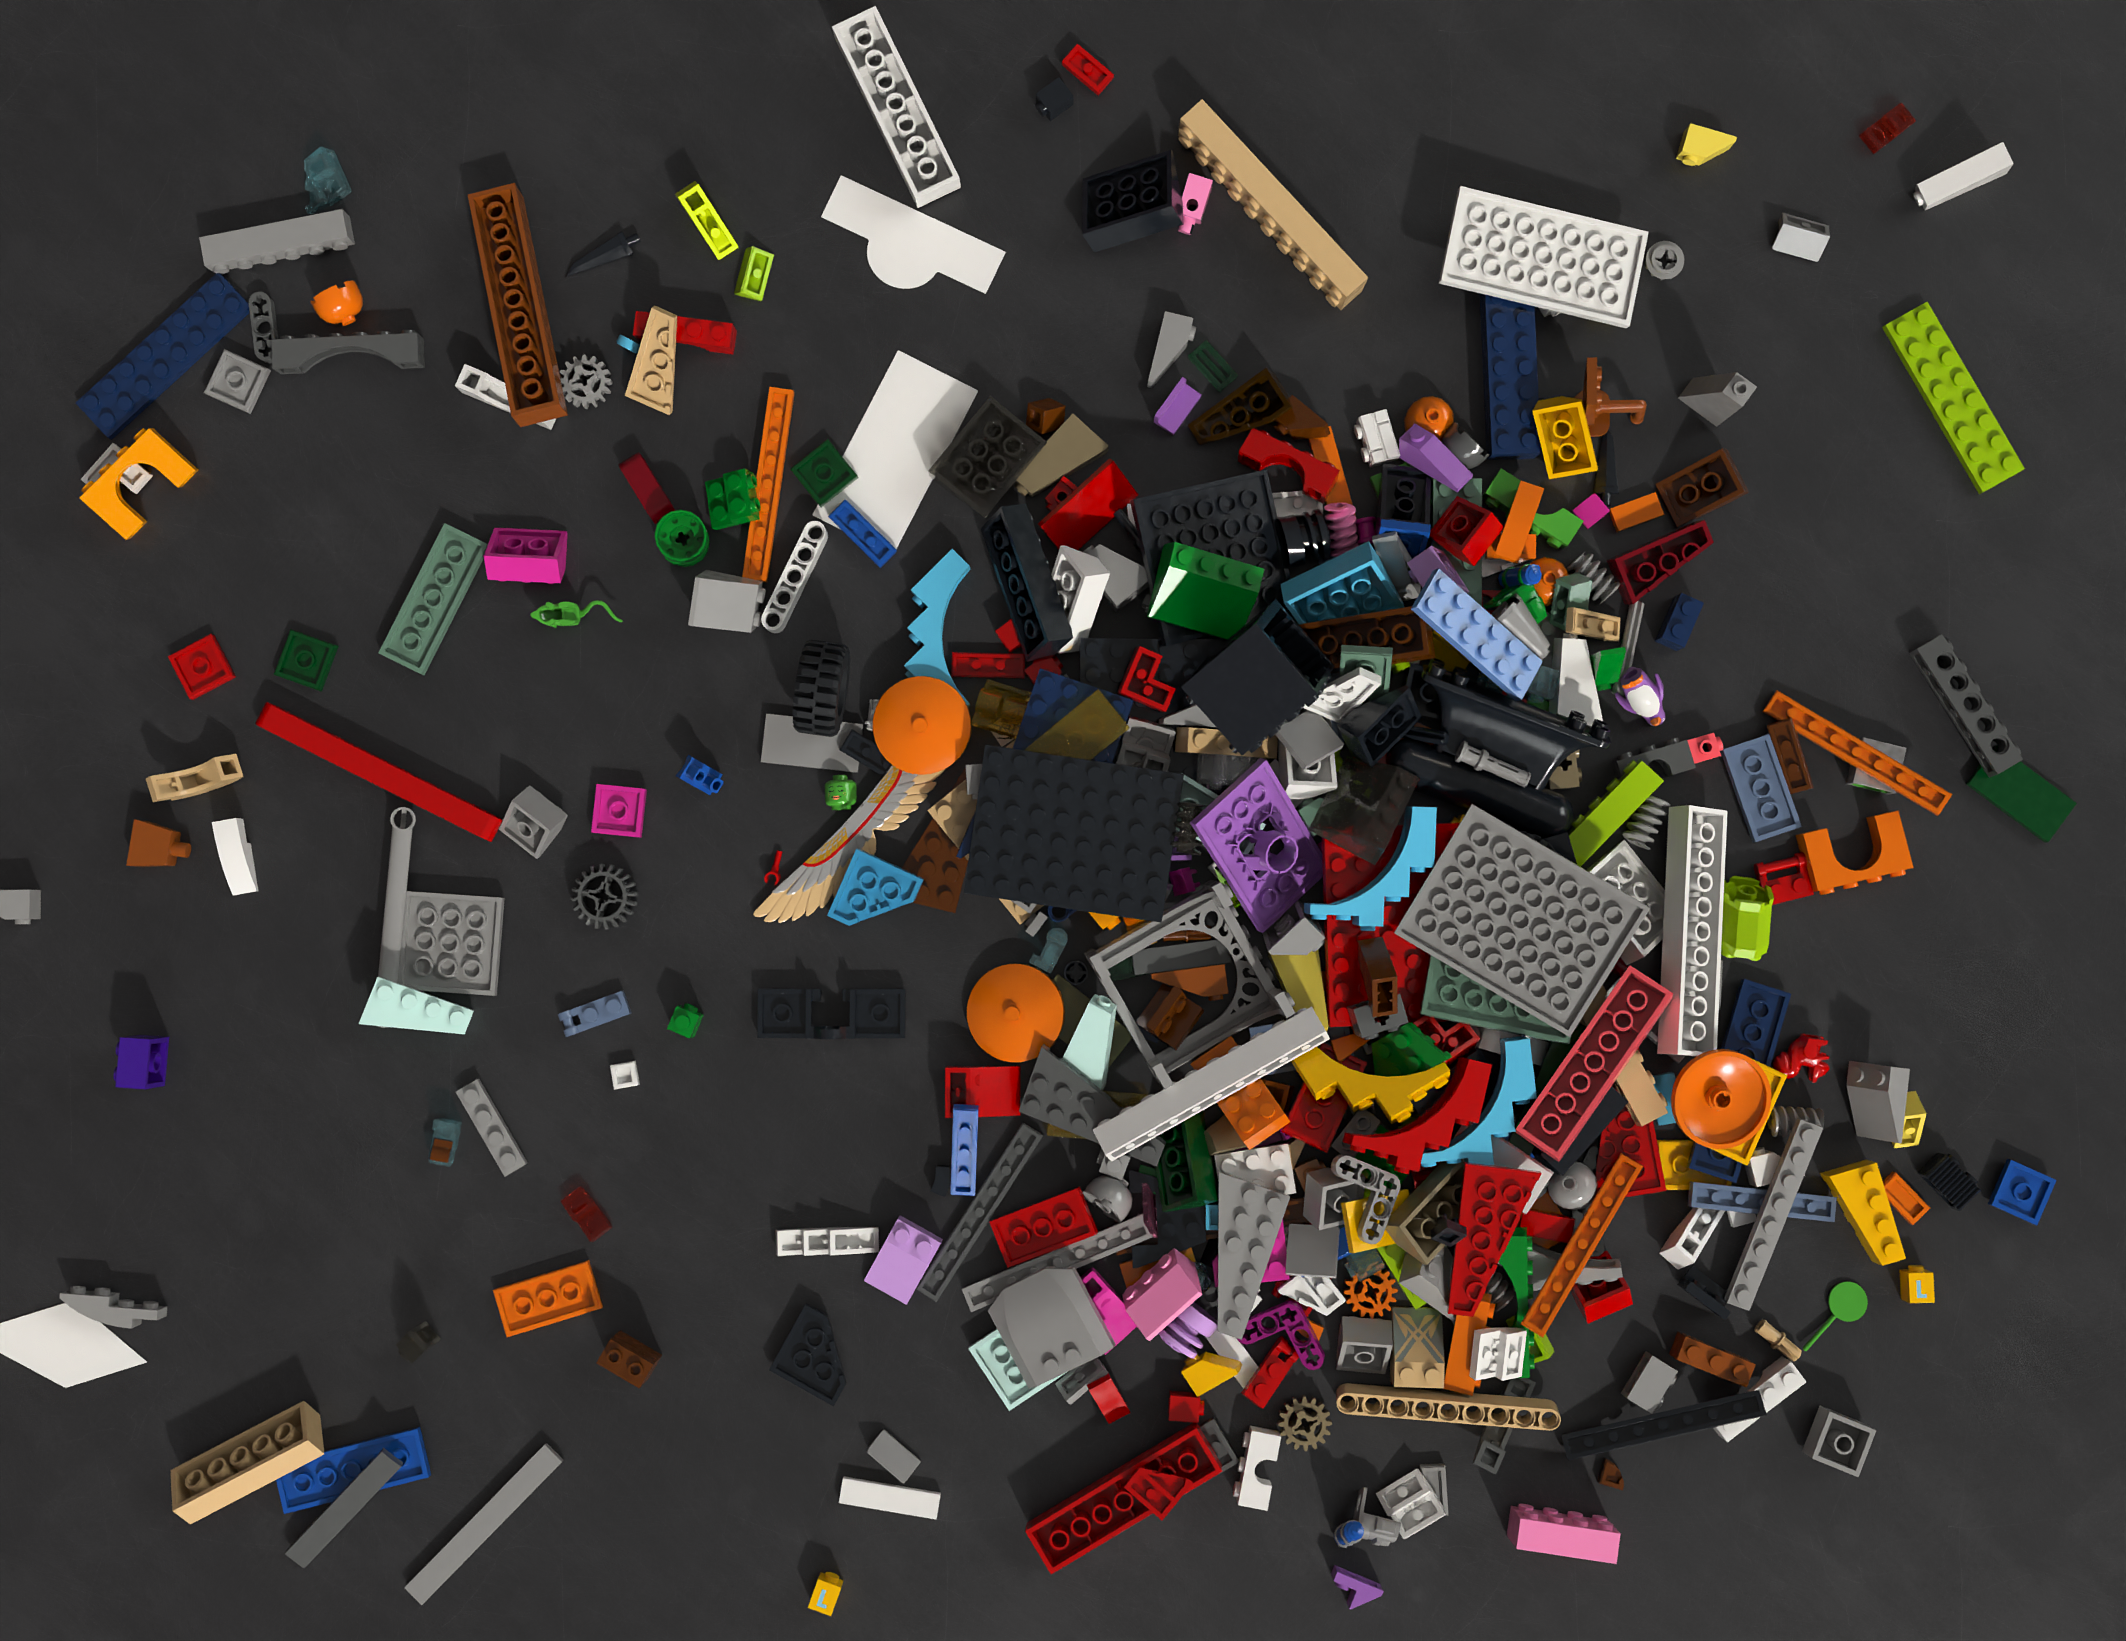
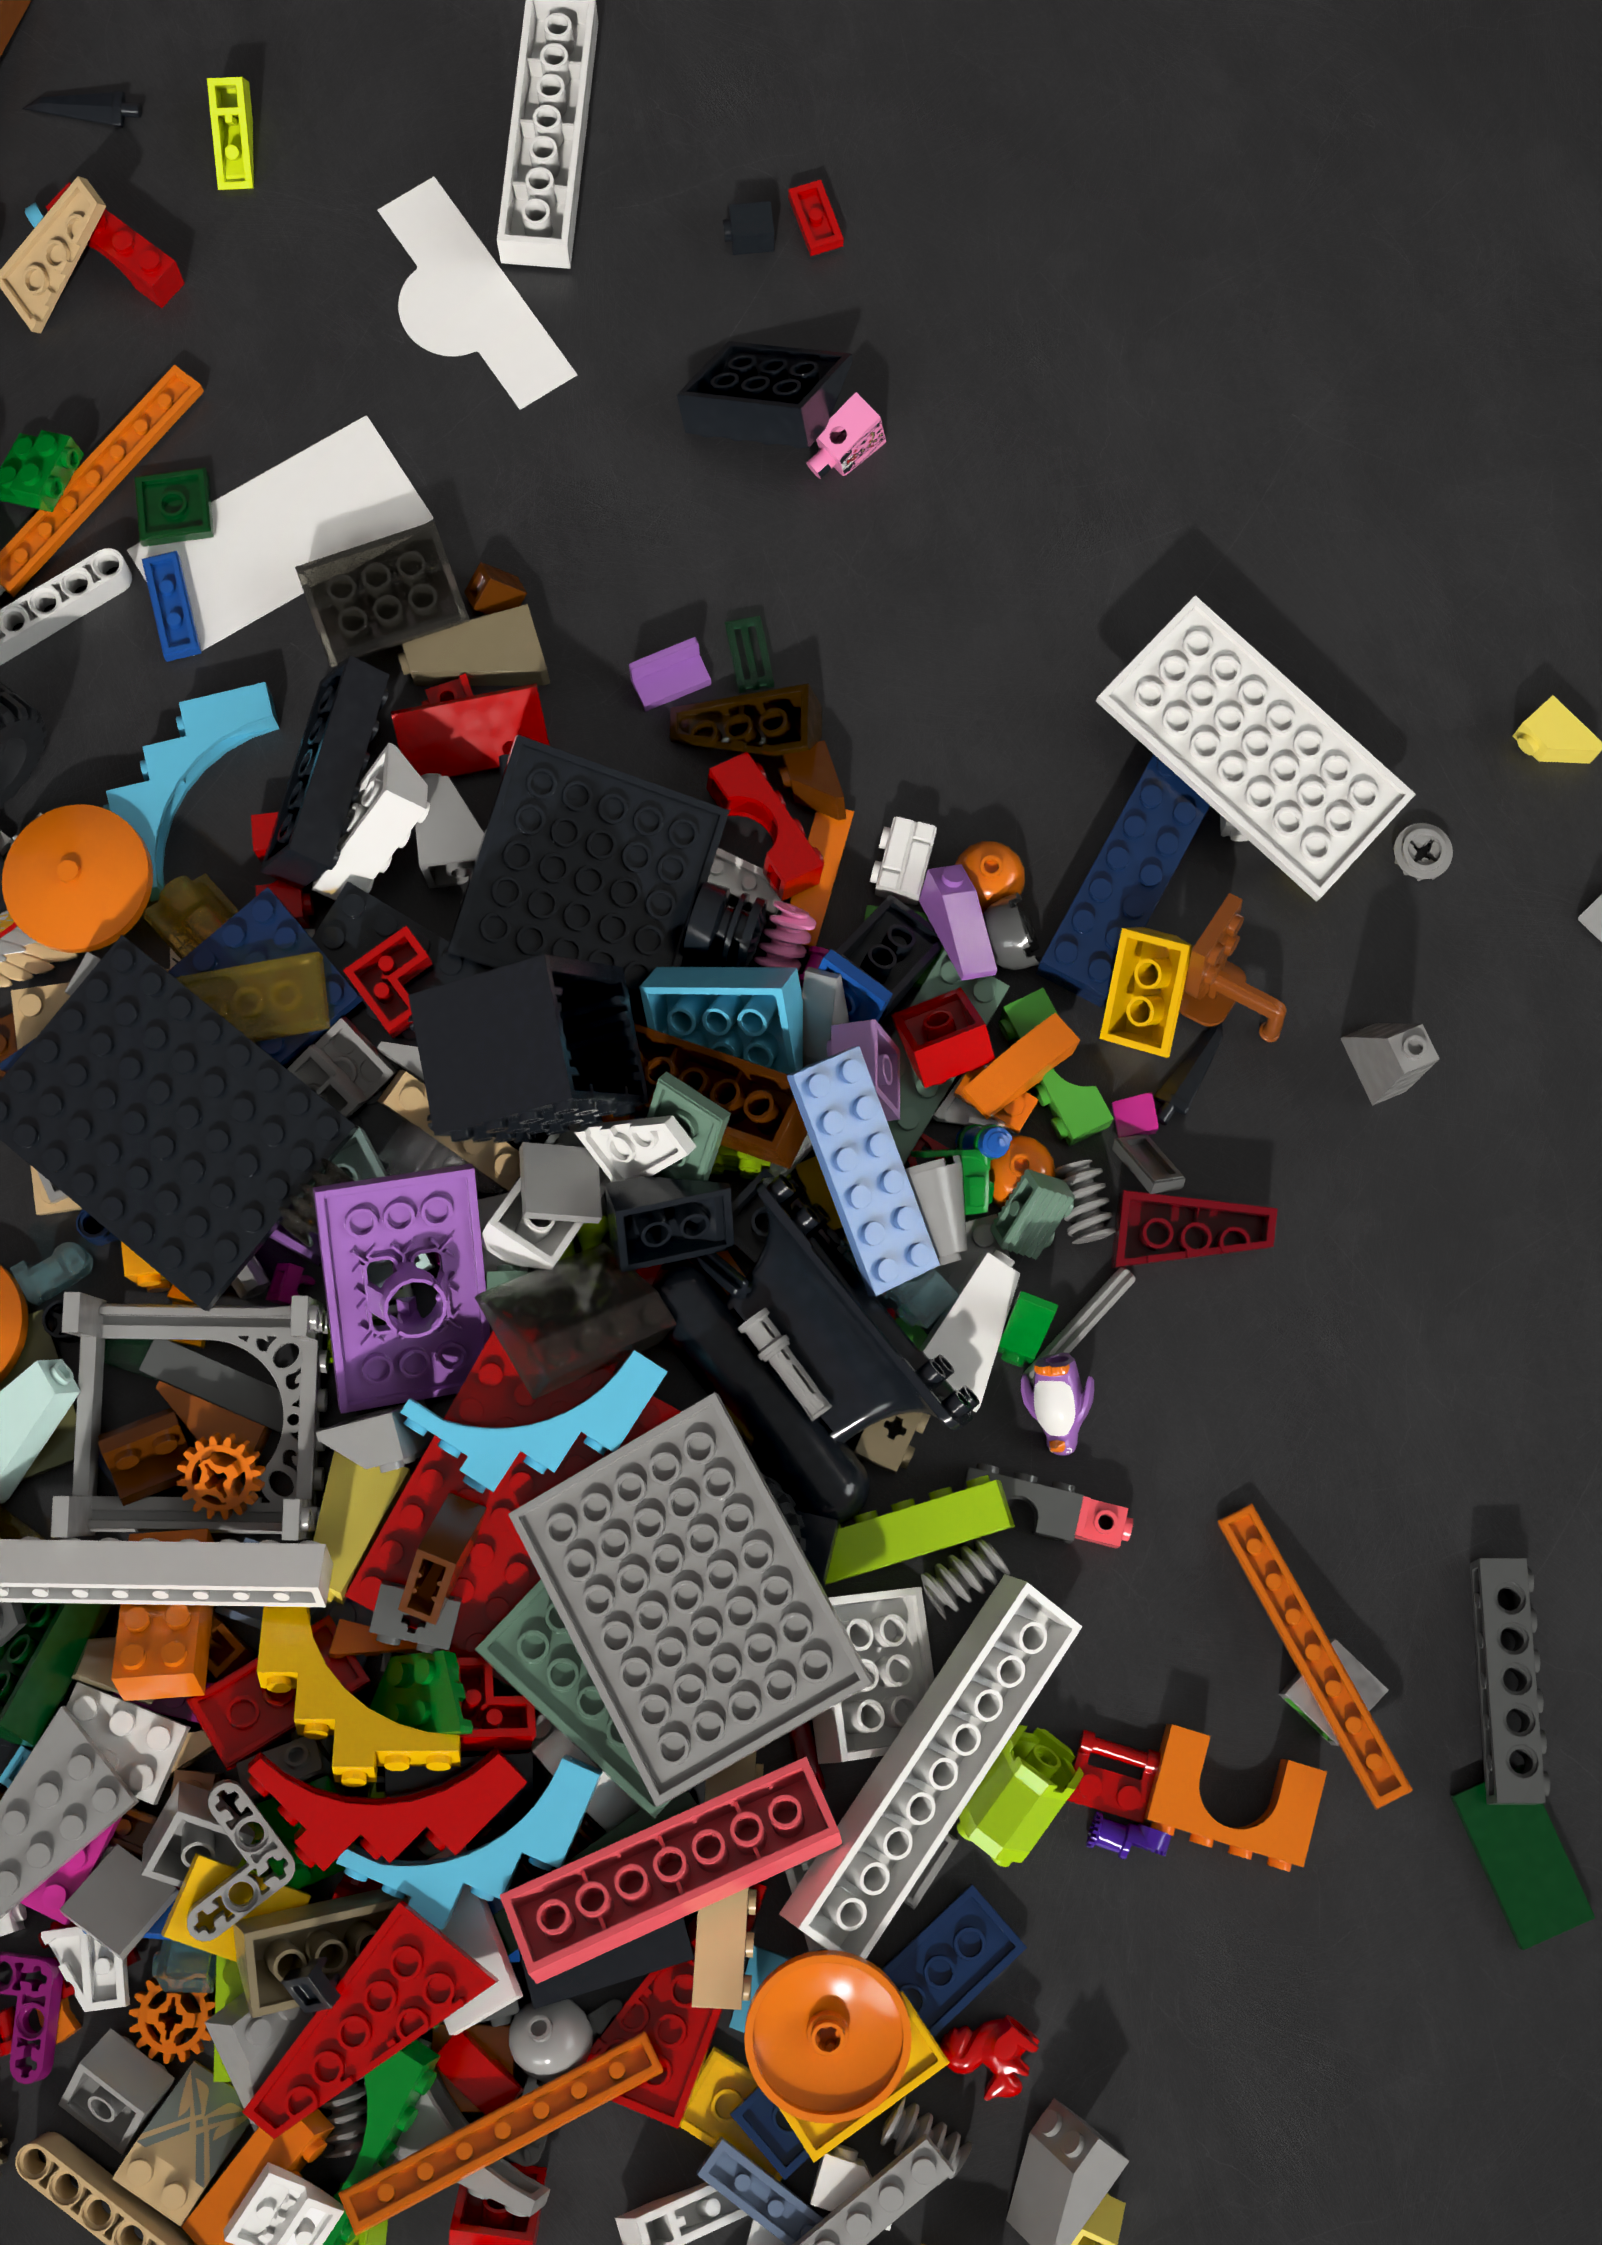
camera: 25 degrees right, 10 degrees down
(754, 273) = (250, 229): lime slope -> none
(988, 665) = (217, 857): red tile -> none
(1035, 922) = (55, 1225): light grey plate -> none
(1172, 341) = (709, 595): light grey slope -> none
(1187, 935) = (243, 1359): reddish brown axle -> none
(1203, 590) = (539, 901): green slope -> none
(1222, 1014) = (213, 1462): none -> orange gear
(1271, 205) = (942, 497): tan brick -> none
(1592, 624) = (1044, 1262): tan tile -> none
(1616, 534) = (1148, 1163): none -> dark grey tile
(1636, 512) = (1199, 1152): orange tile -> none
(1679, 622) = (1168, 1330): dark blue brick -> none
(1702, 487) = (1306, 1170): reddish brown slope -> none
(1761, 788) = (1152, 1627): sand blue plate -> none
(1790, 755) = (1218, 1605): reddish brown tile -> none
(1809, 908) = (1120, 1837): none -> dark purple connector

